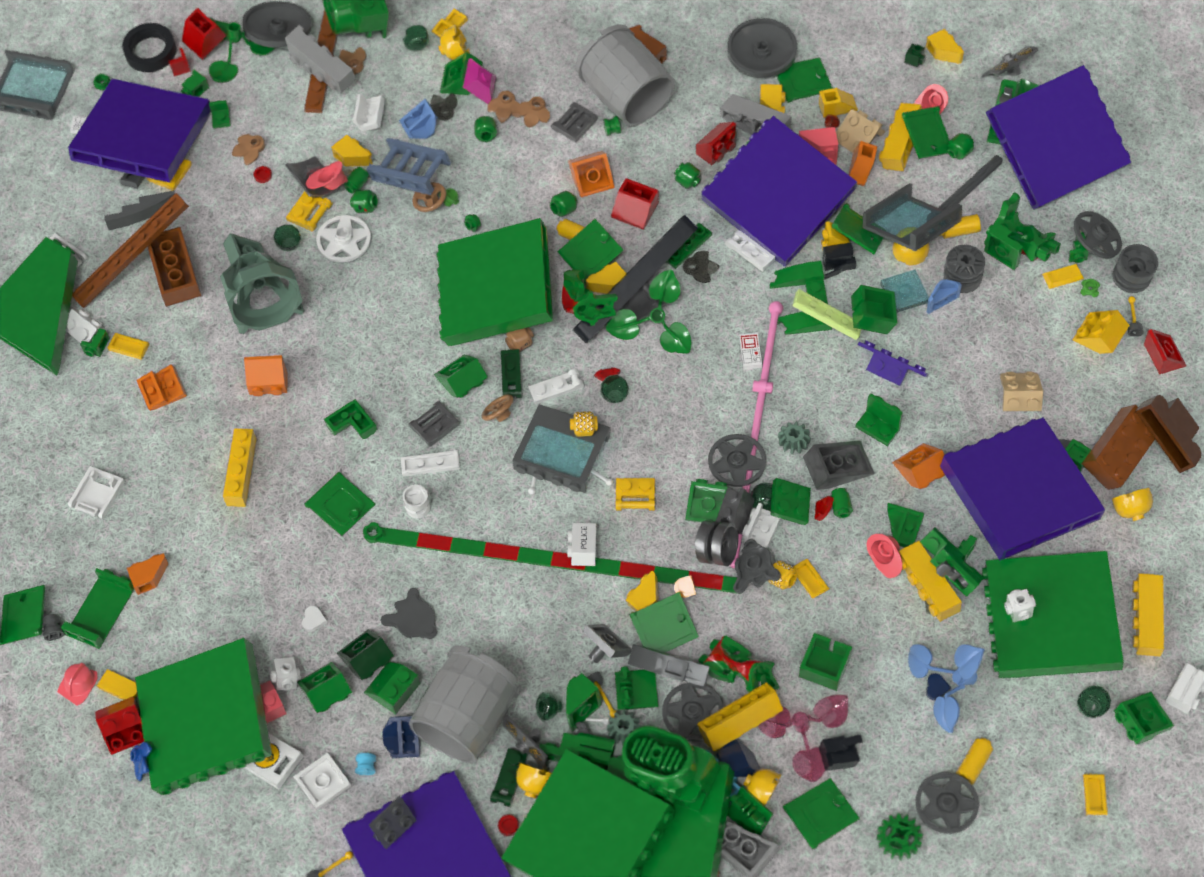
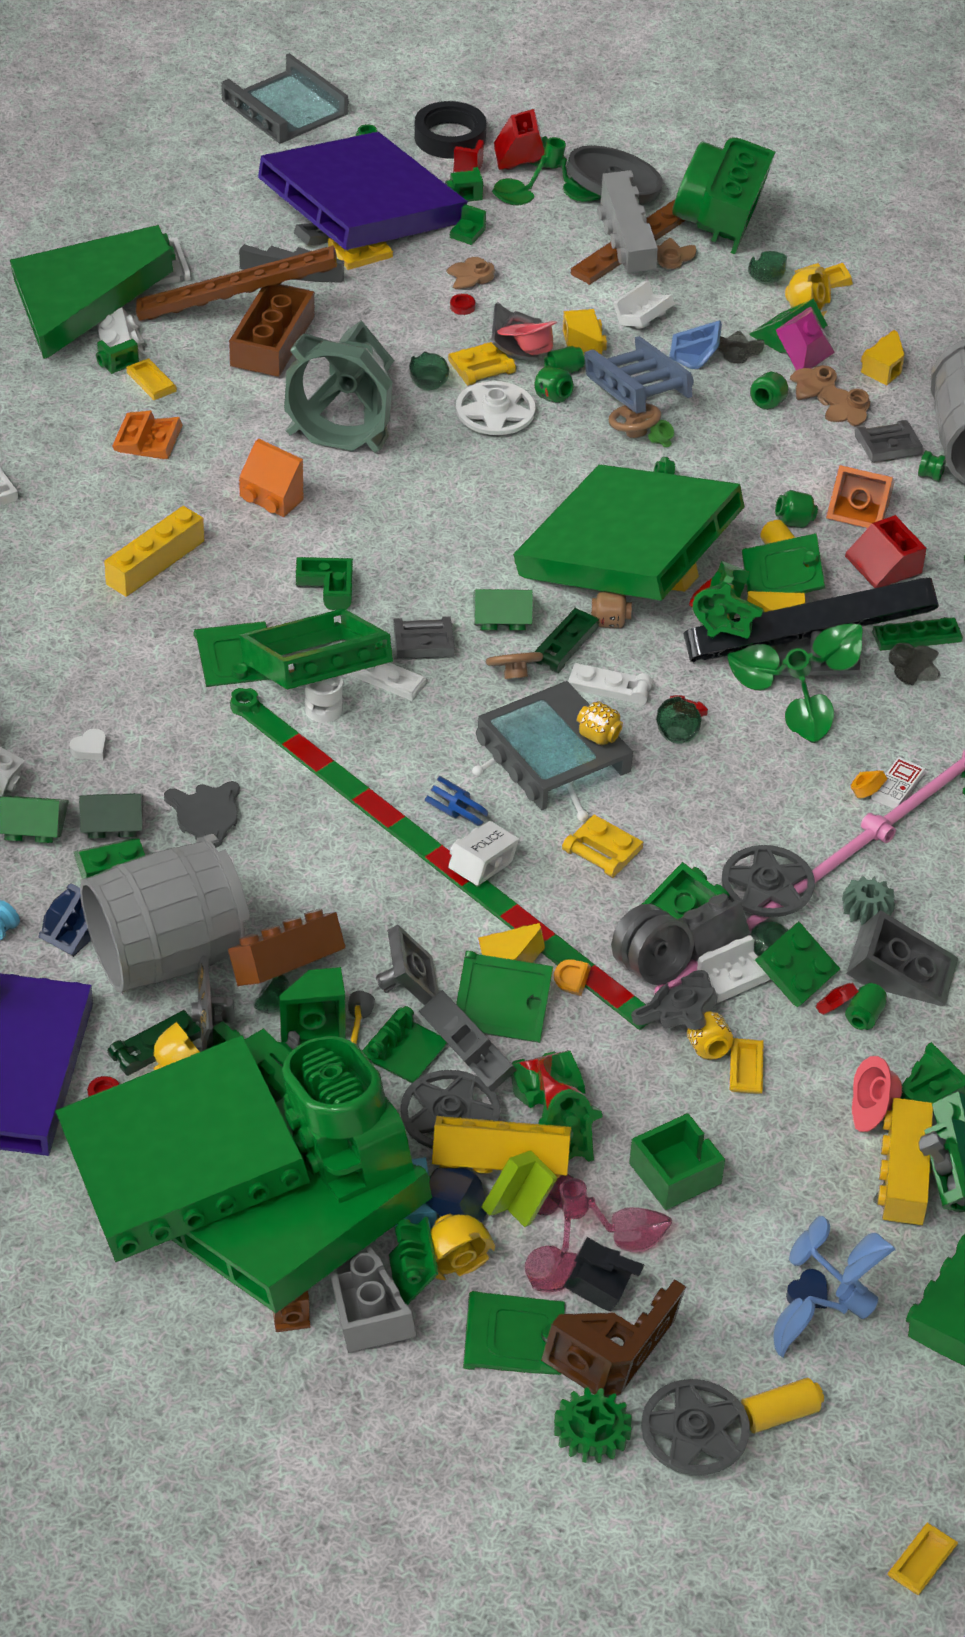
camera: 30 degrees right, 15 degrees down
(400, 504) = (363, 648): none -> green window
(531, 65) = (884, 359): none -> yellow slope
(534, 520) = (457, 803): none -> blue arm
(539, 678) = (286, 947): none -> dark orange brick
(737, 362) = (868, 783): none -> light orange tile
(768, 733) = (521, 1188): none -> lime panel
(873, 799) = (583, 1346): none -> reddish brown bracket

